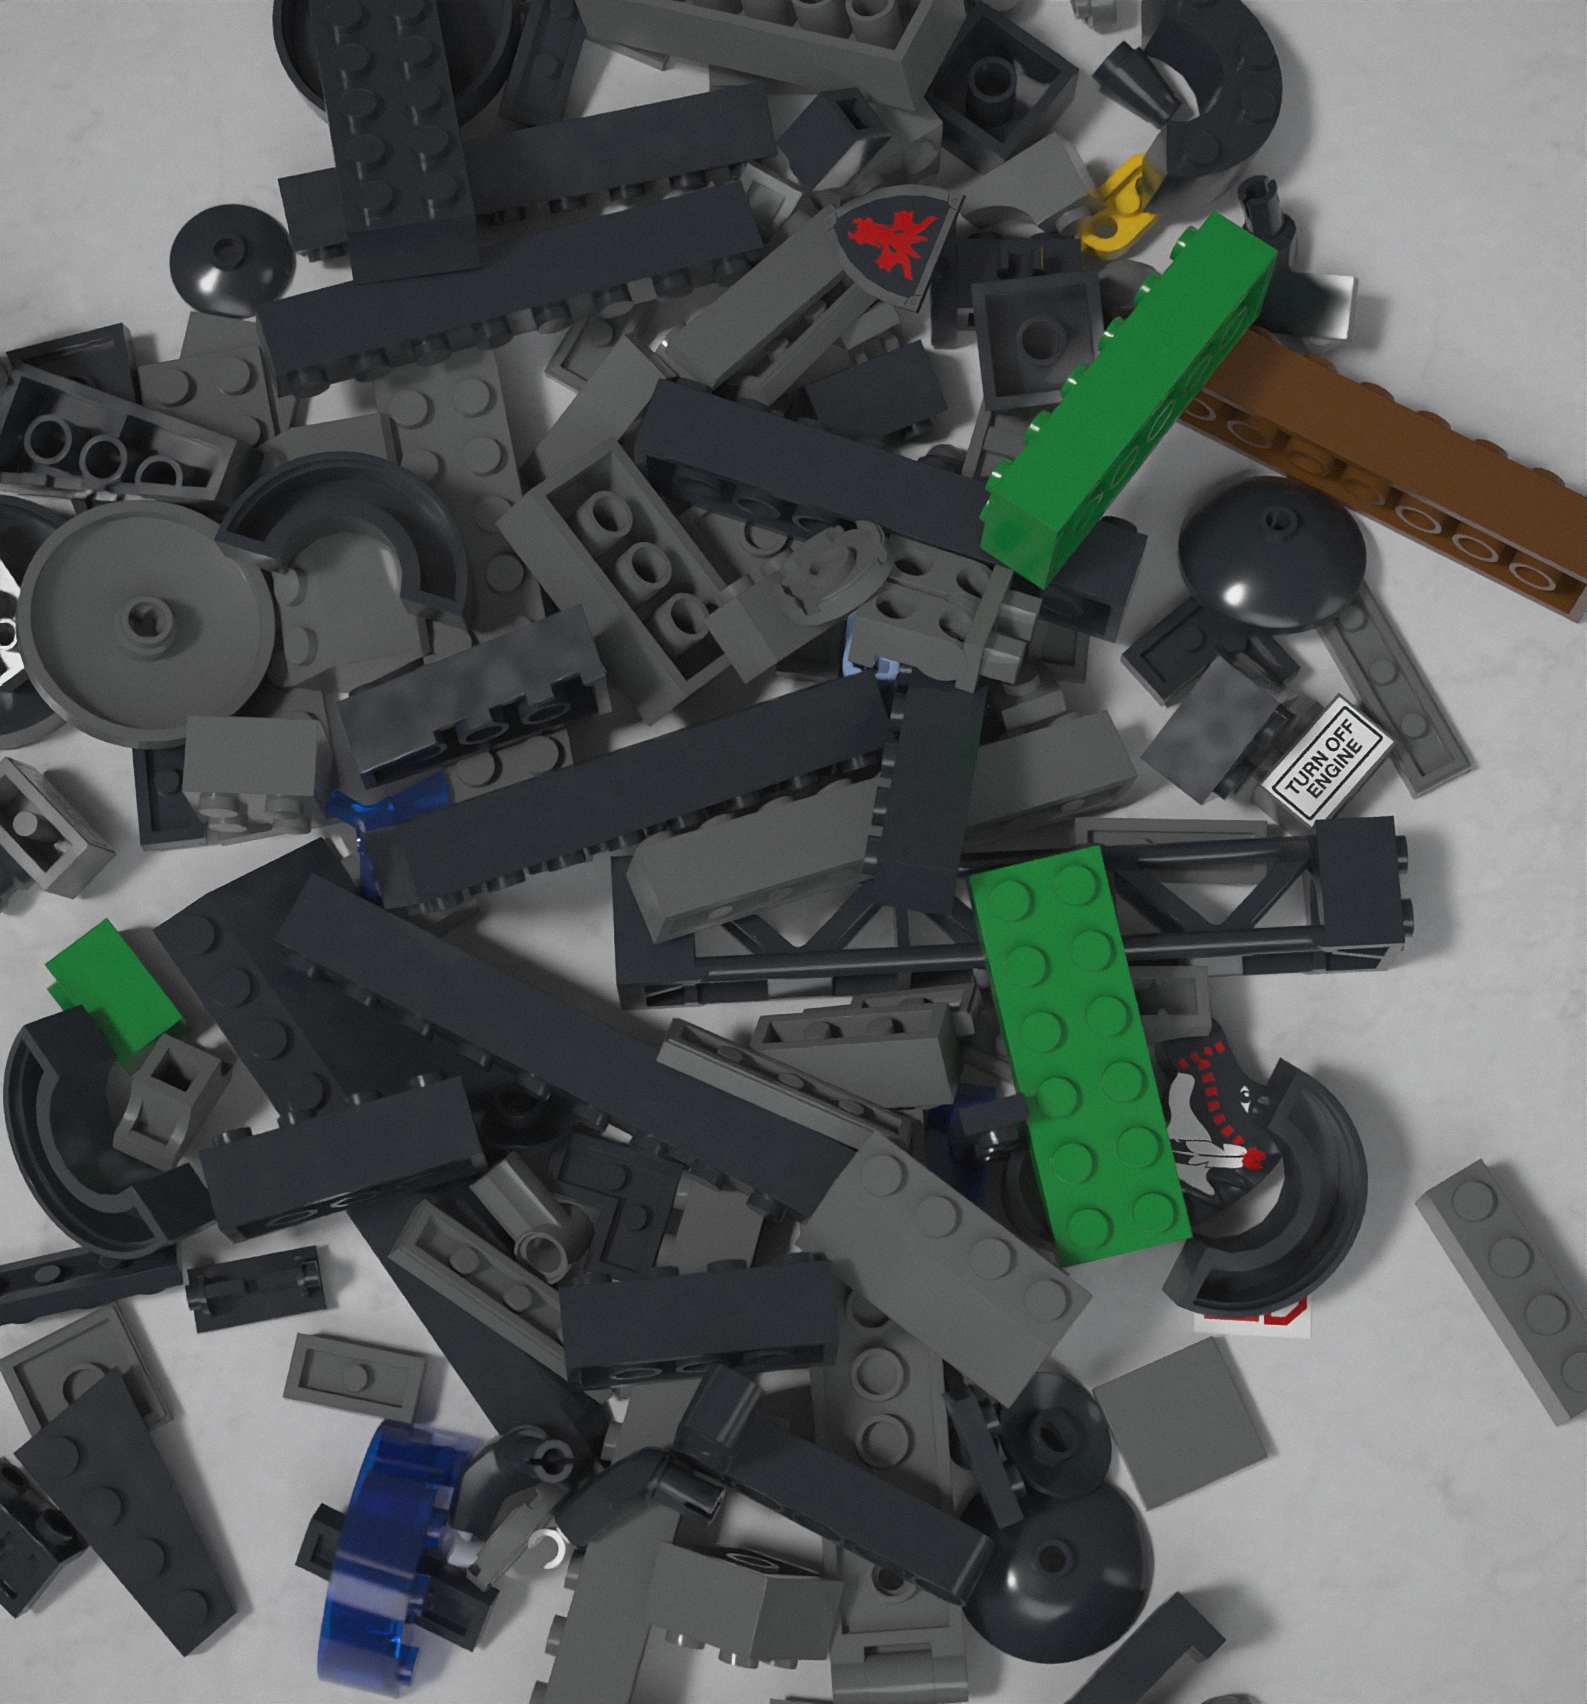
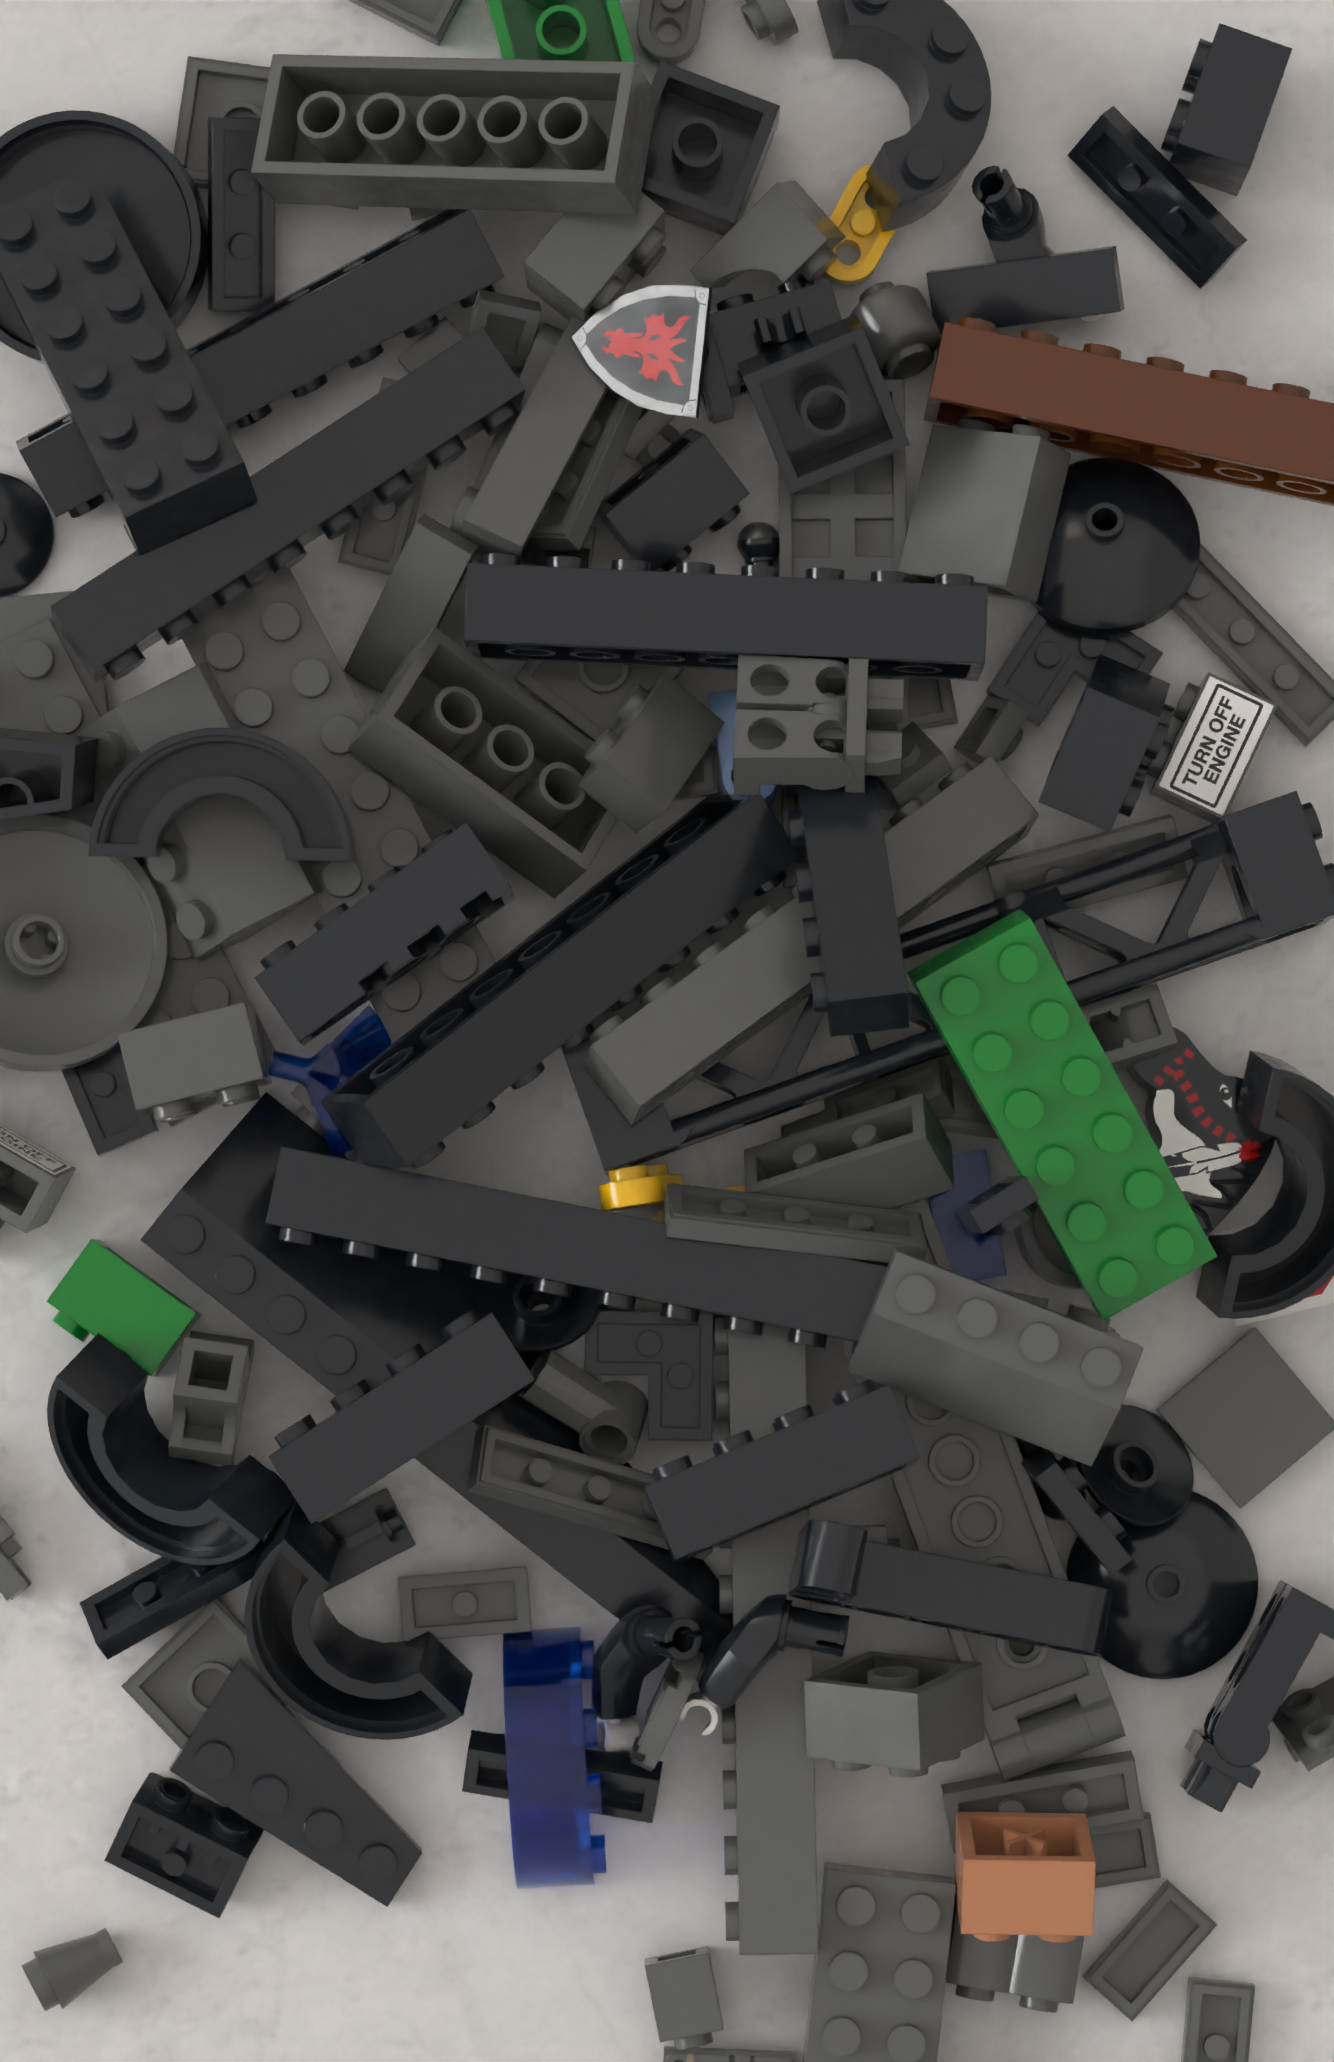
camera: 15 degrees left, 10 degrees up
(197, 1395) = (326, 1668): none -> black brick
(641, 1016) = (636, 1187): none -> yellow plate
(833, 139) = (566, 269): black brick -> none
(833, 573) = (696, 713): dark grey tile -> none
(1118, 693) = (993, 730): none -> dark grey plate
(1125, 398) = (935, 458): green brick -> none
(1136, 85) = (837, 93): black cone -> none
(1188, 490) = (986, 507): none -> dark grey brick
(1410, 256) = (1156, 197): none -> black plate
(1496, 188) = (1231, 100): none -> black brick

